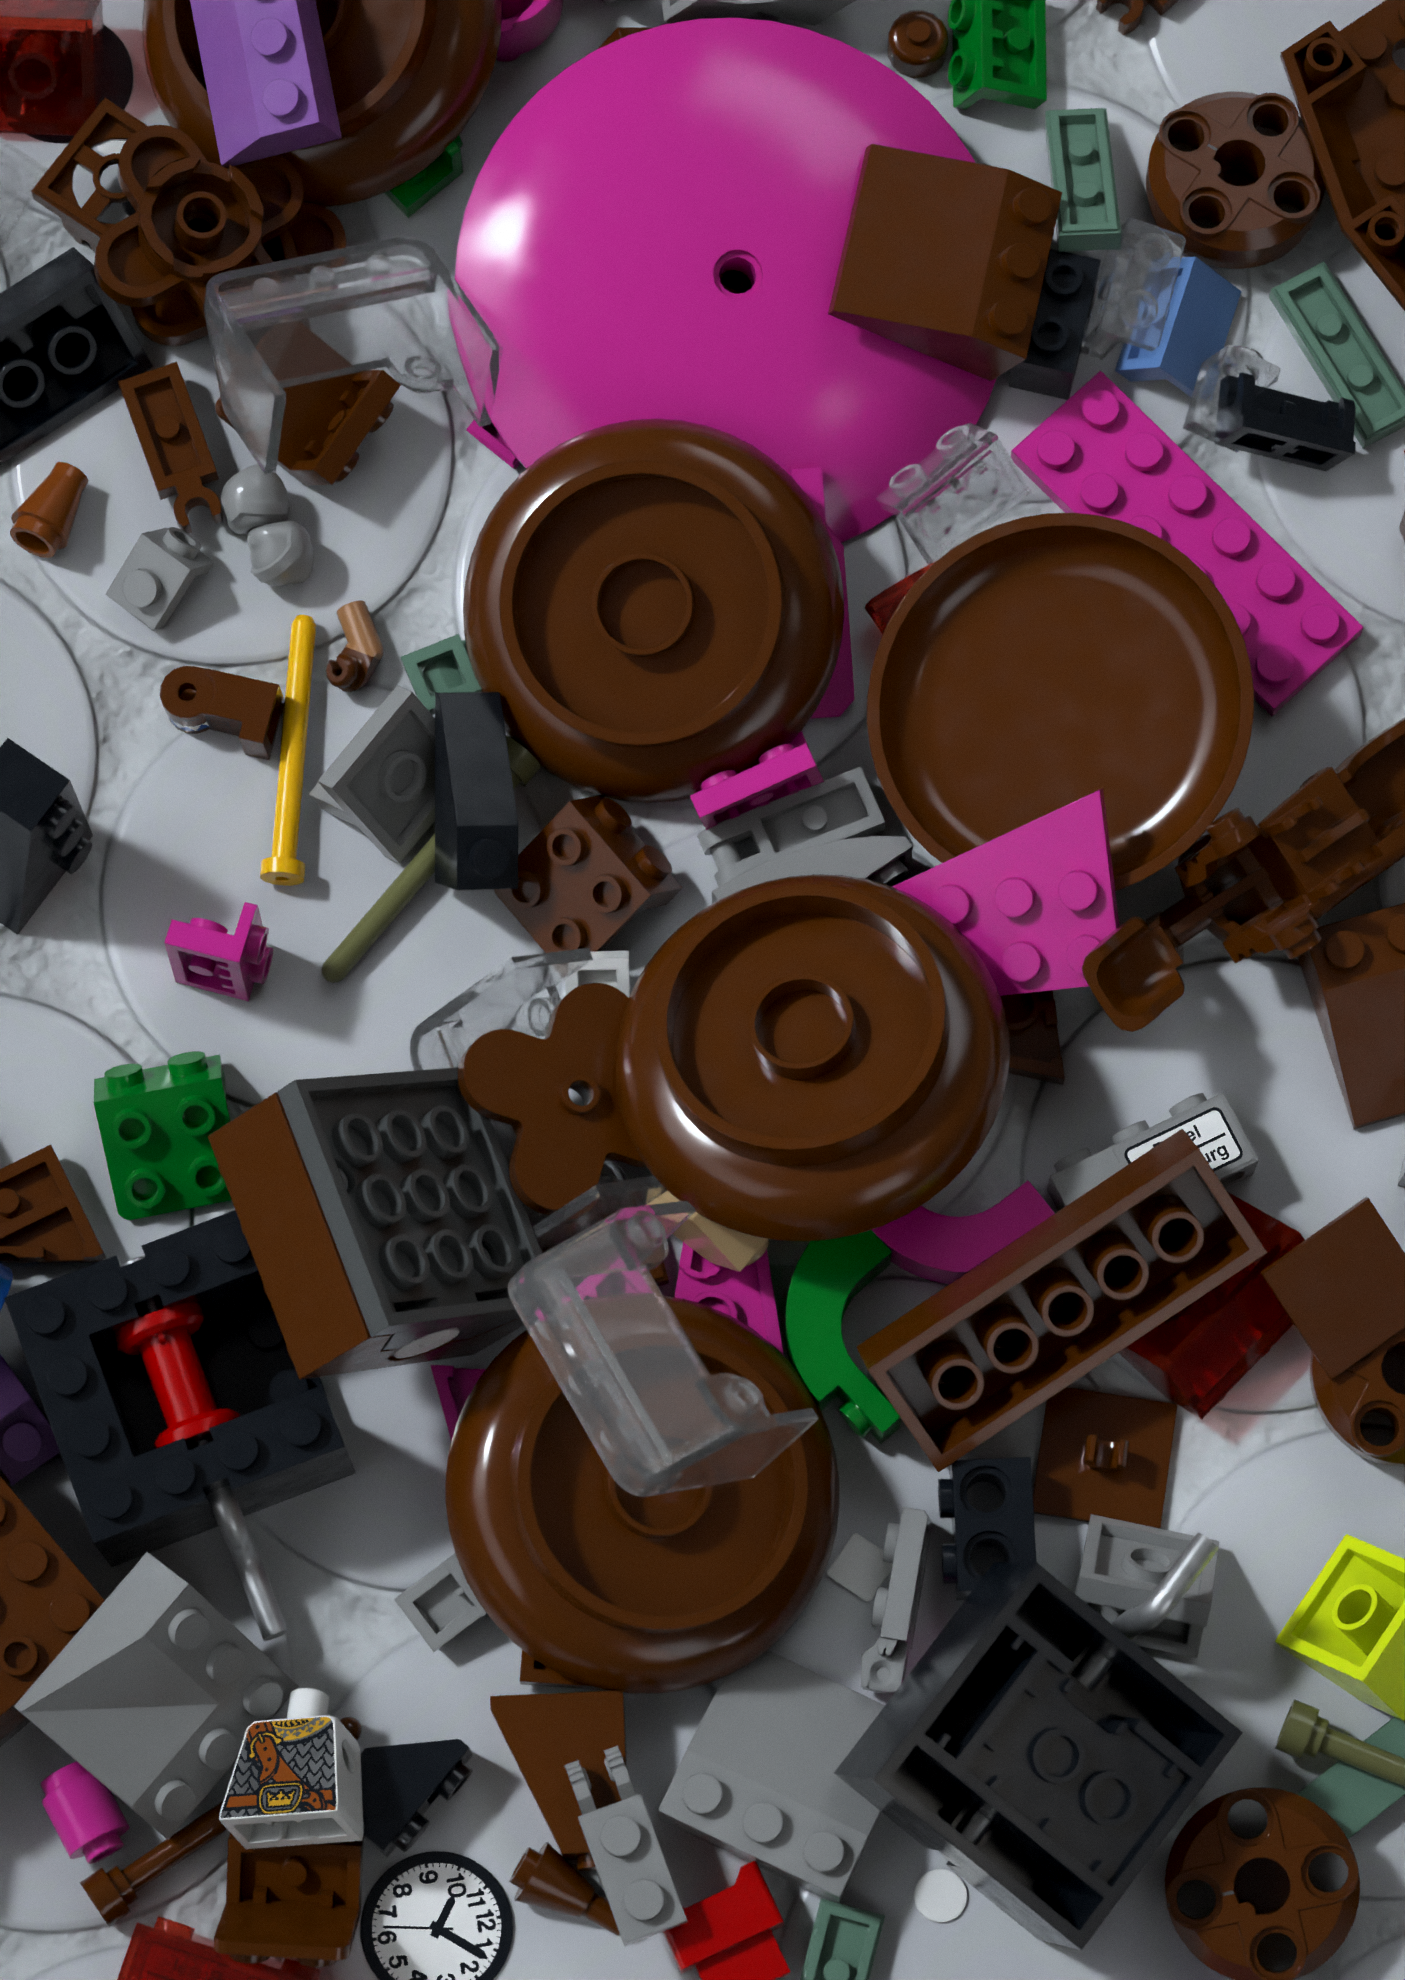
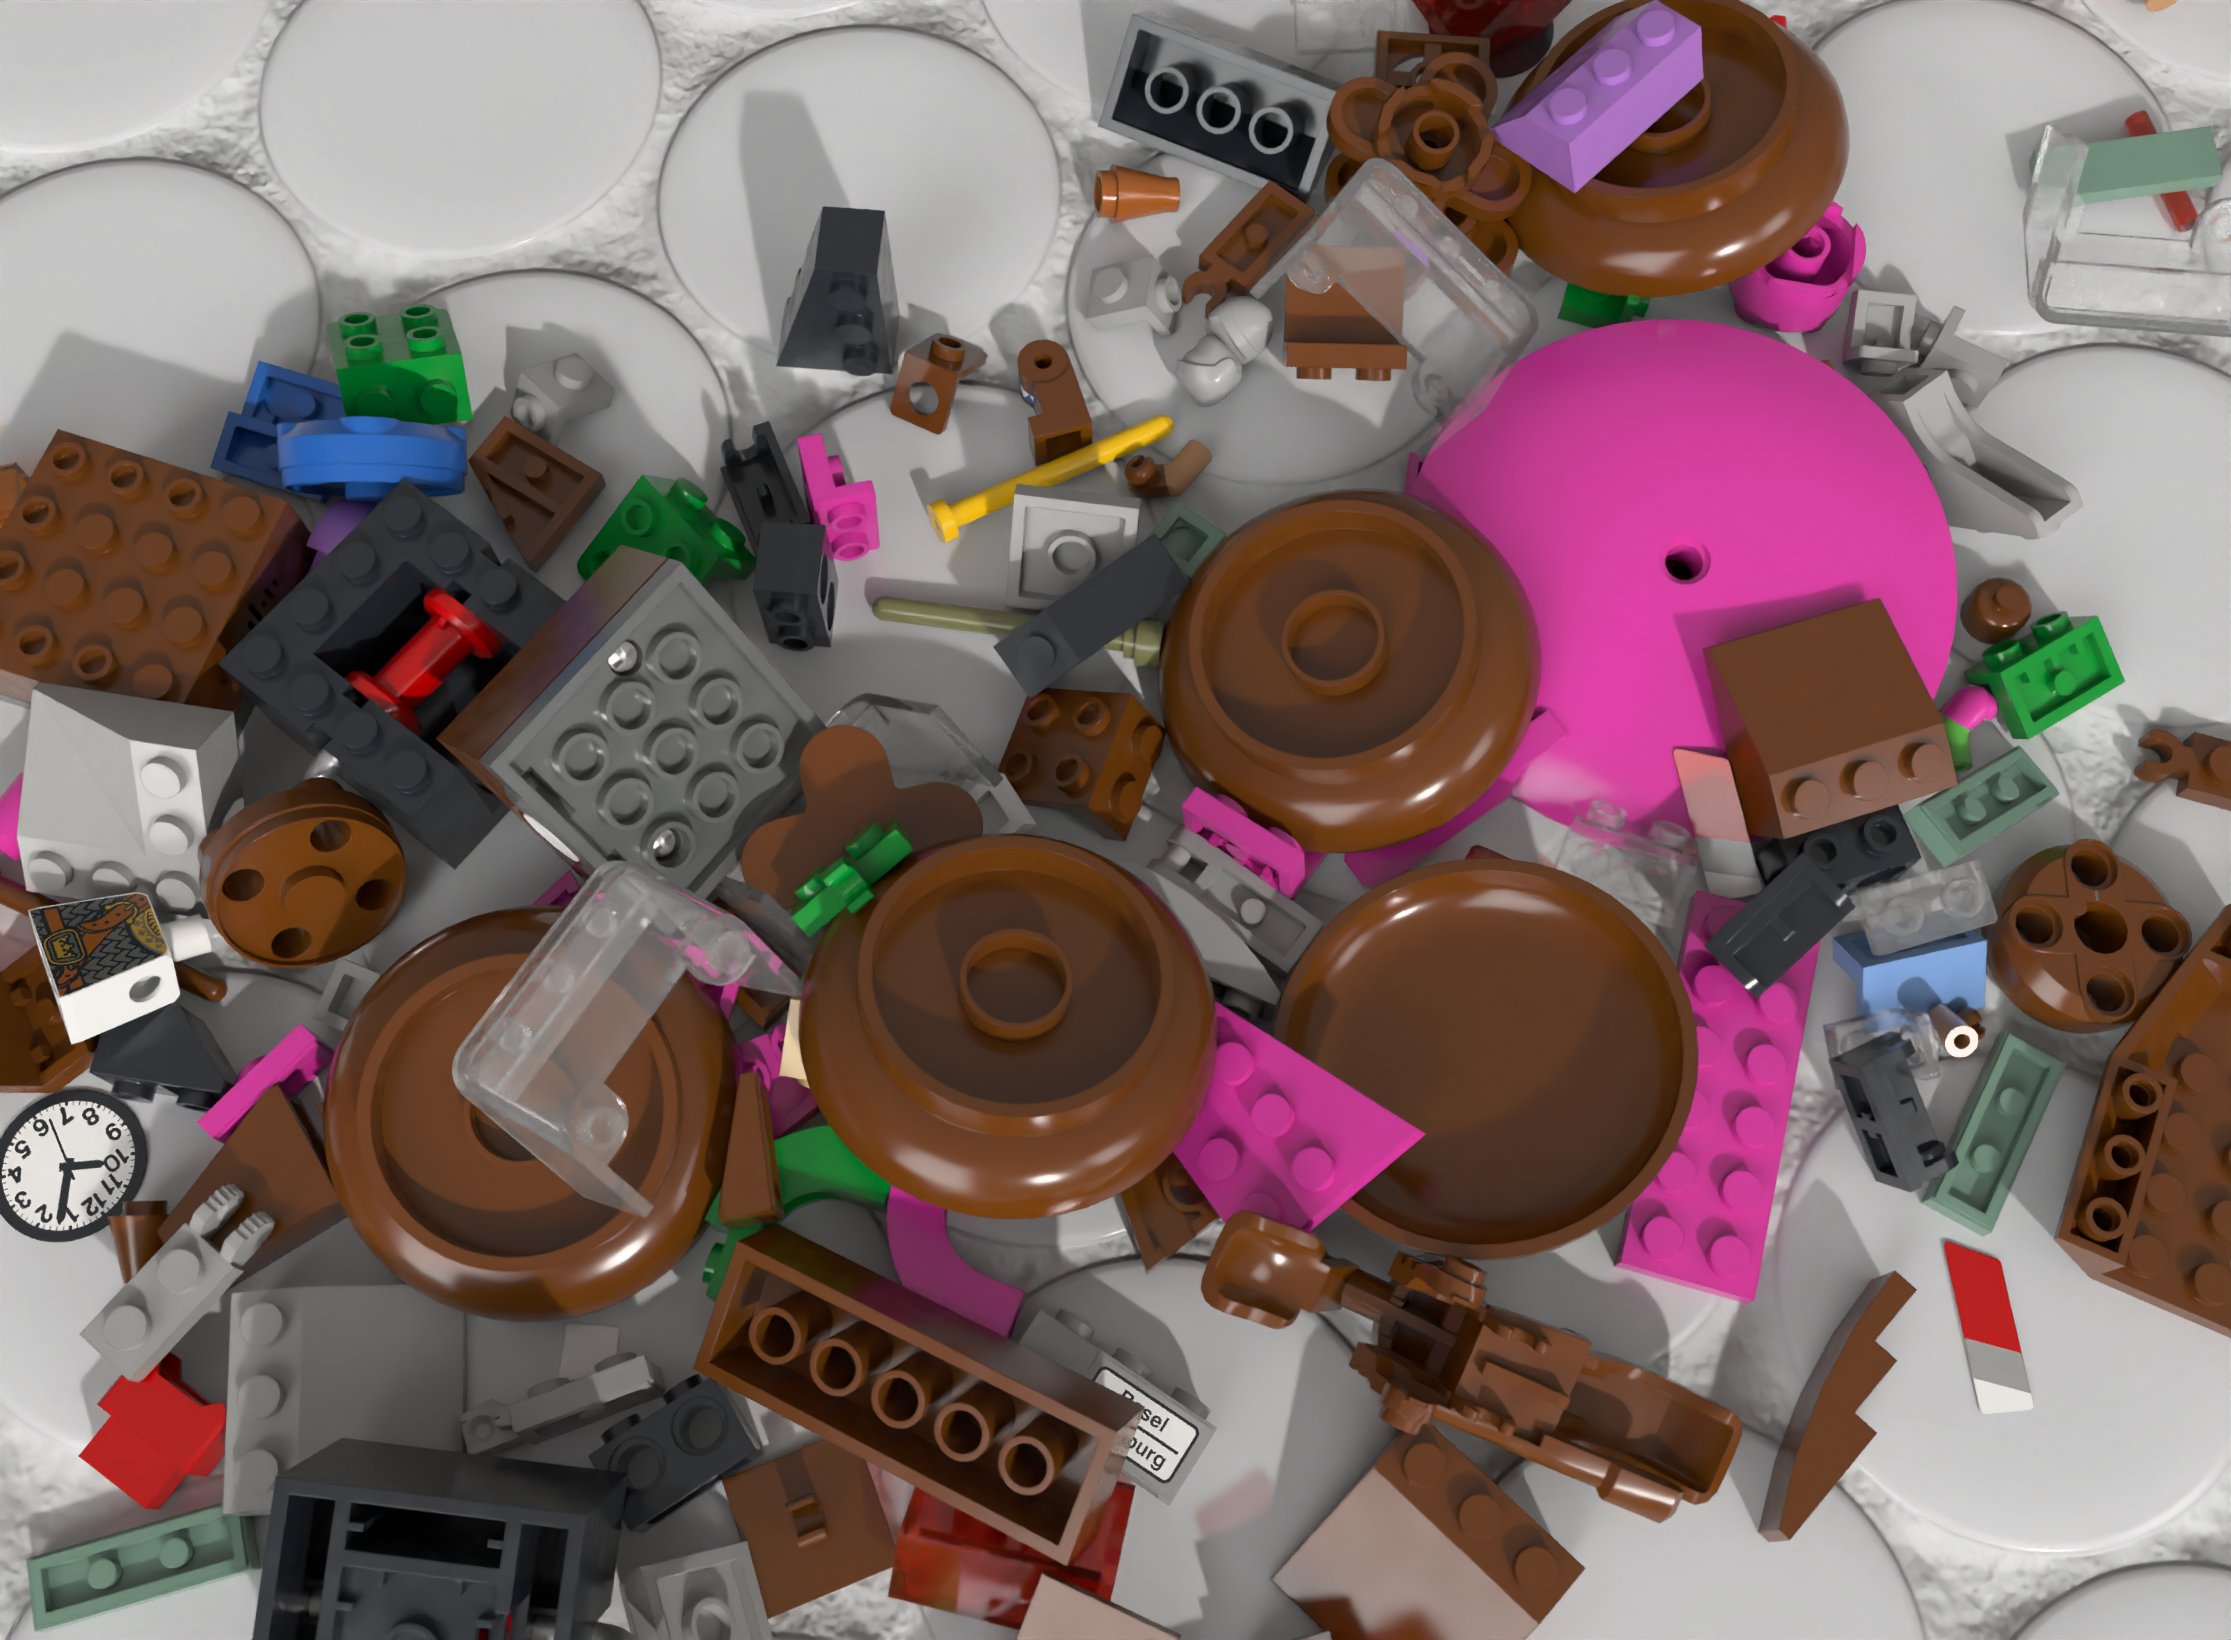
camera: 55 degrees right, 5 degrees down
(123, 783) = (941, 363): none -> reddish brown bracket
(166, 1011) = (761, 484): none -> black hinge
(286, 1027) = (796, 585): none -> black brick
(313, 1582) = (302, 875): none -> reddish brown piece
(474, 1718) = (289, 1064): none -> dark pink plate
(614, 1114) = (851, 878): none -> green plate
(808, 1334) = (751, 1171): none -> reddish brown slope
(969, 398) = (1718, 824): none -> sticker
(993, 140) = (1961, 715): none -> dark pink arm
(1088, 410) = (1780, 925): none -> black hinge
(1249, 328) = (1958, 1030): none -> arm

